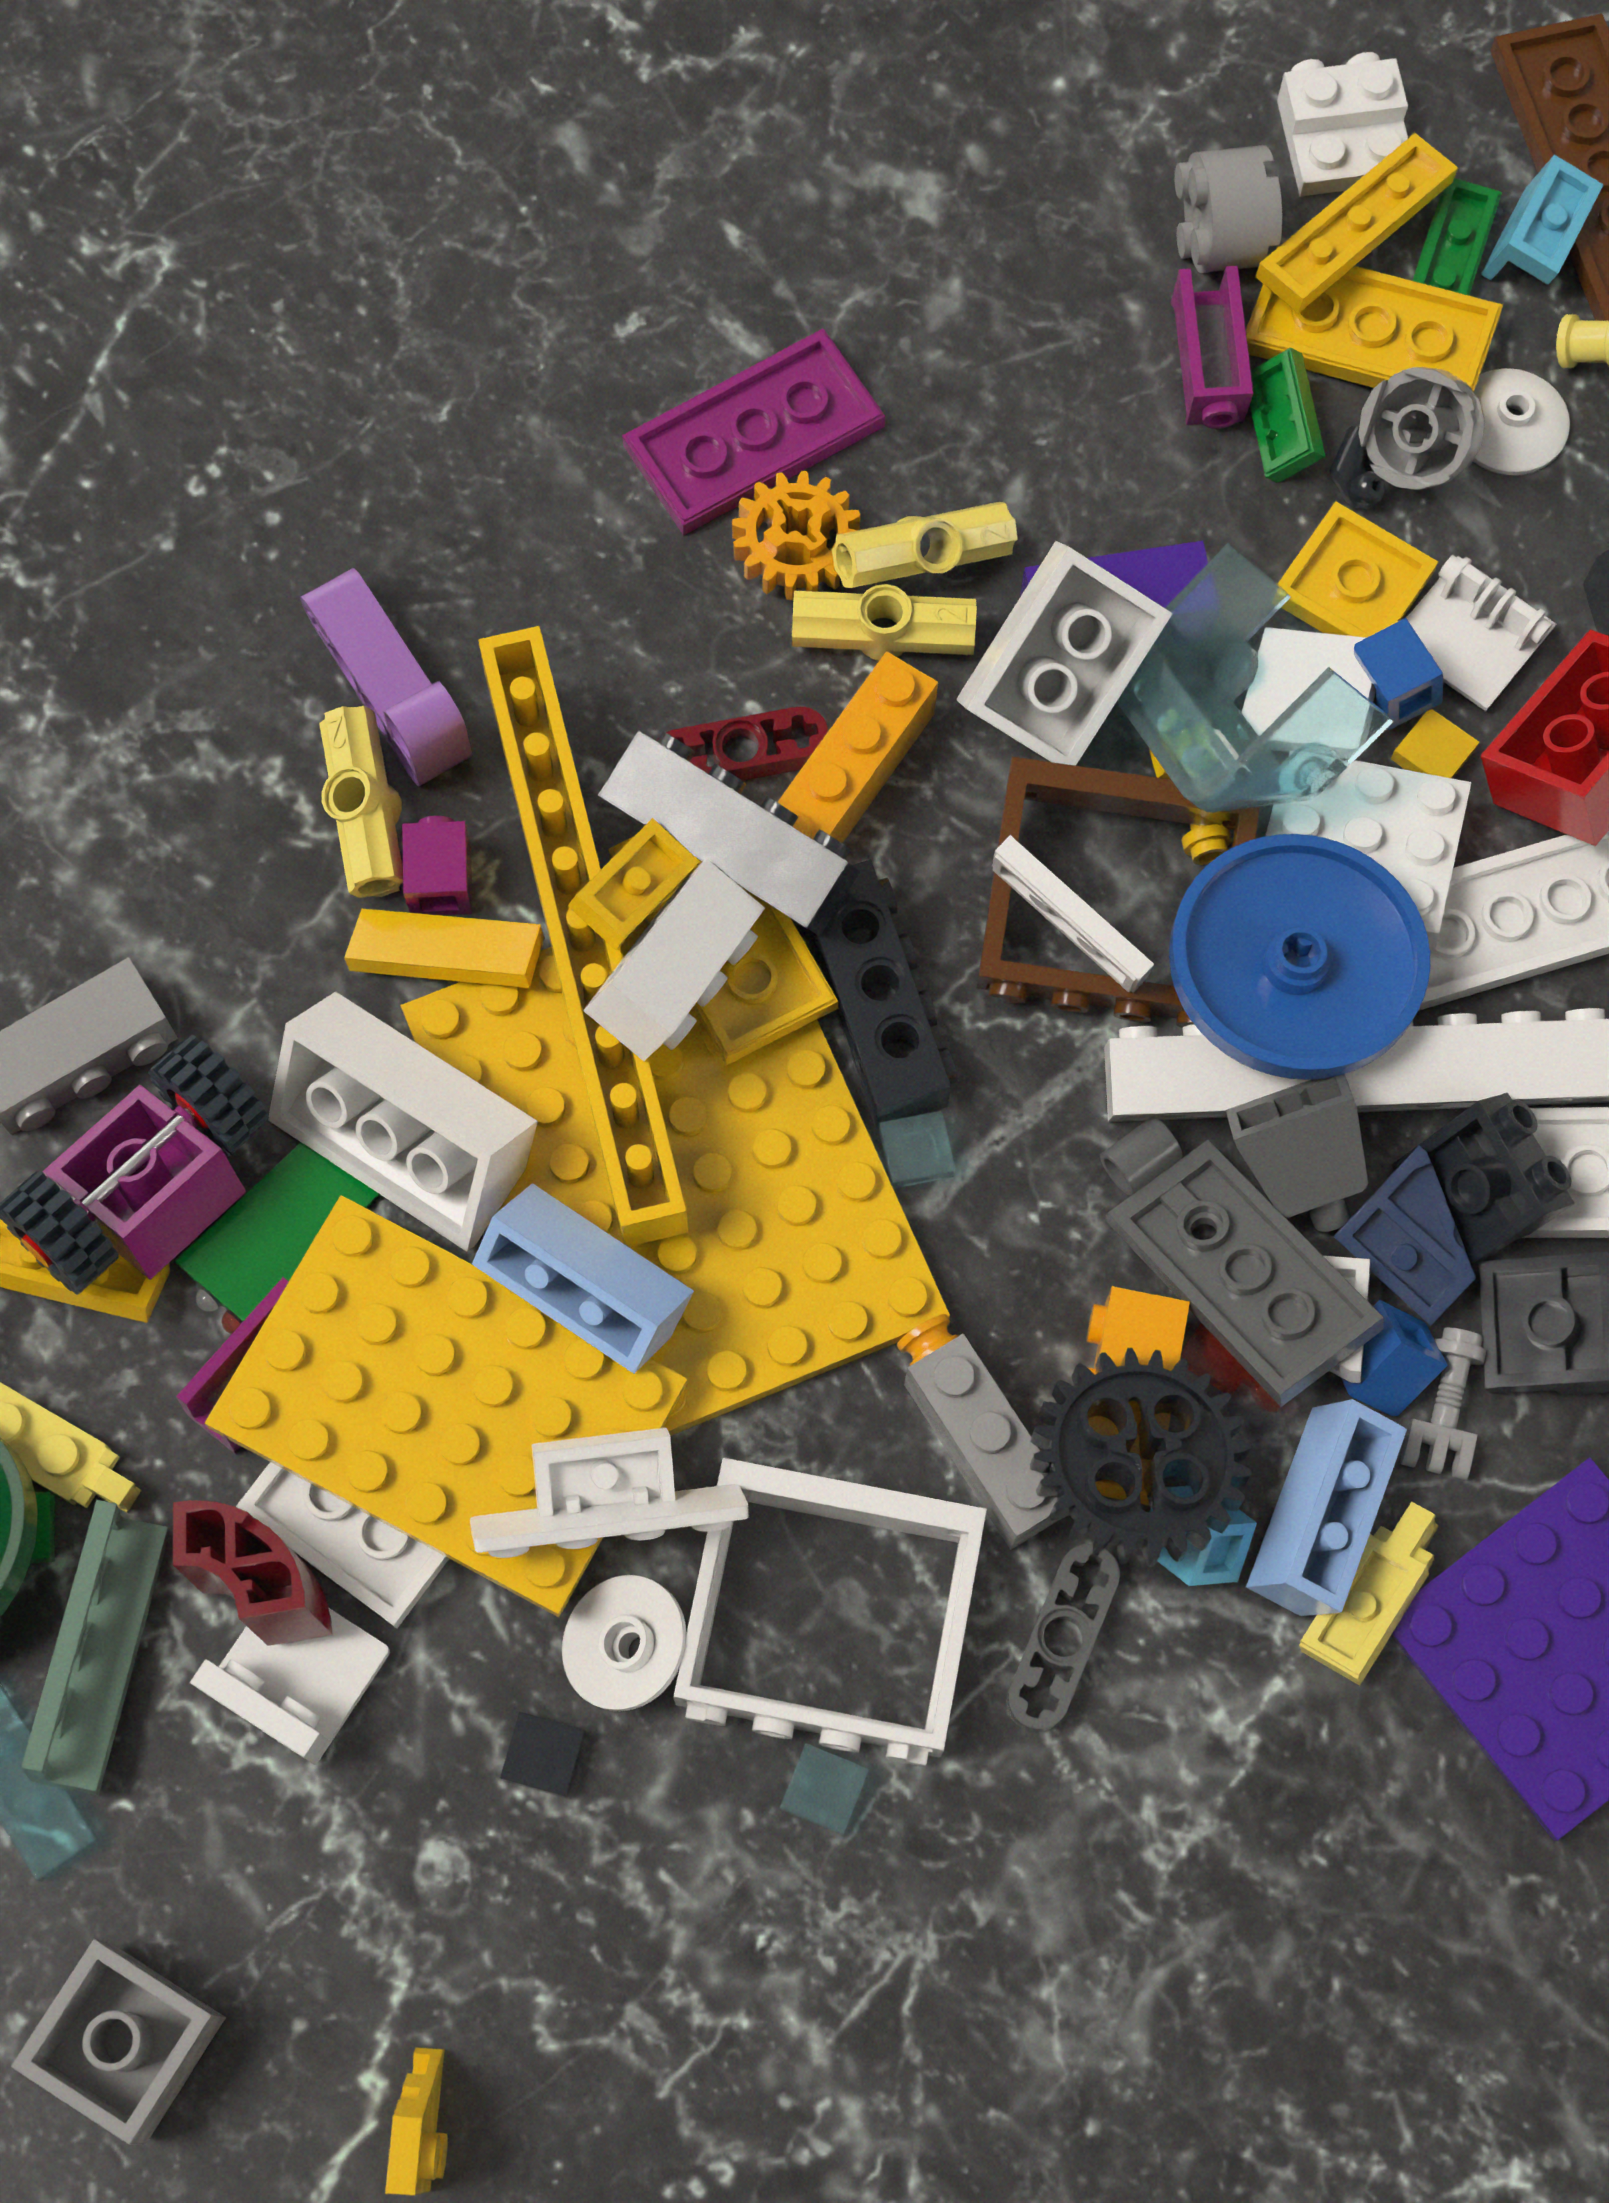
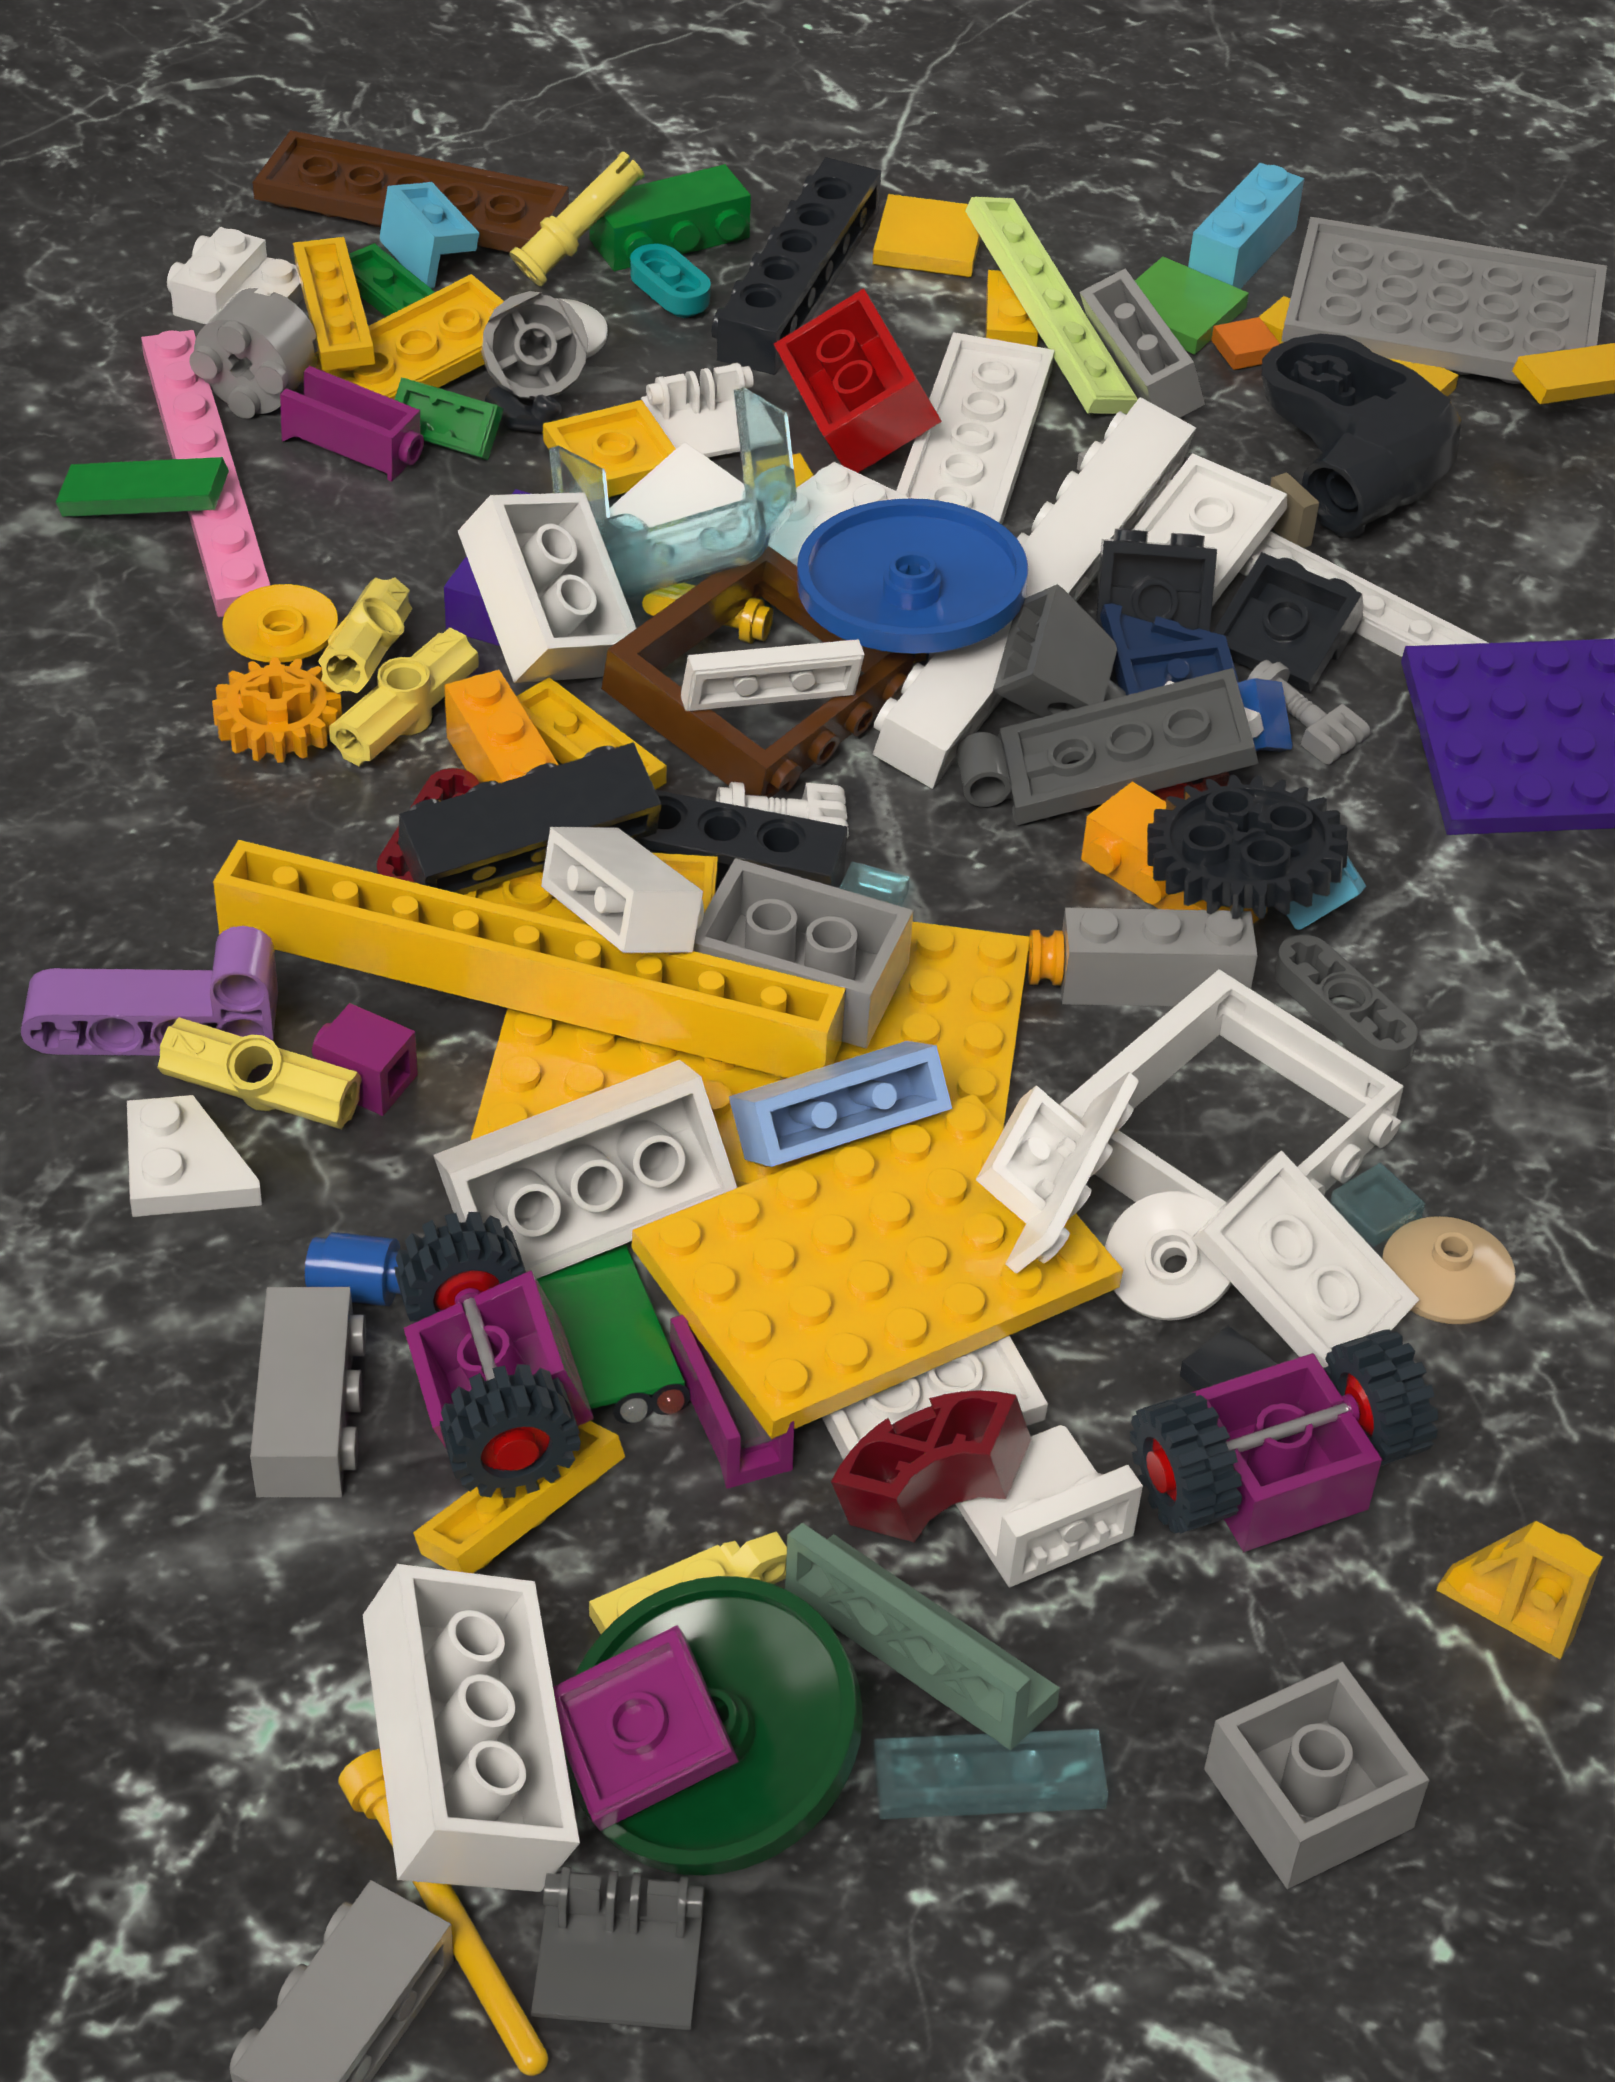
camera: 60 degrees left, 25 degrees down
(216, 1004) = (355, 1262): none -> blue brick
(259, 800) = (183, 1160): none -> white wing
(440, 1845) = (1285, 1441): none -> brick
(445, 948) = (445, 1085): yellow tile -> none
(633, 883) = (534, 881): yellow plate -> none
(661, 1769) = (1302, 1262): none -> white plate
(740, 1142) = (811, 934): none -> light grey brick
(750, 427) = (151, 702): magenta tile -> none
(785, 1927) = (1452, 1268): none -> tan dish
(909, 446) = (280, 623): none -> yellow dish
(937, 801) = (575, 729): none -> yellow plate
(943, 971) = (818, 803): none -> white hinge
(995, 244) = (142, 486): none -> green tile
(1064, 280) = (195, 431): none -> bright pink plate
(1326, 1508) = (1383, 812): light blue brick -> none
(1380, 1594) = (1431, 814): light yellow hinge -> none
(1401, 672) = (711, 441): blue panel -> none

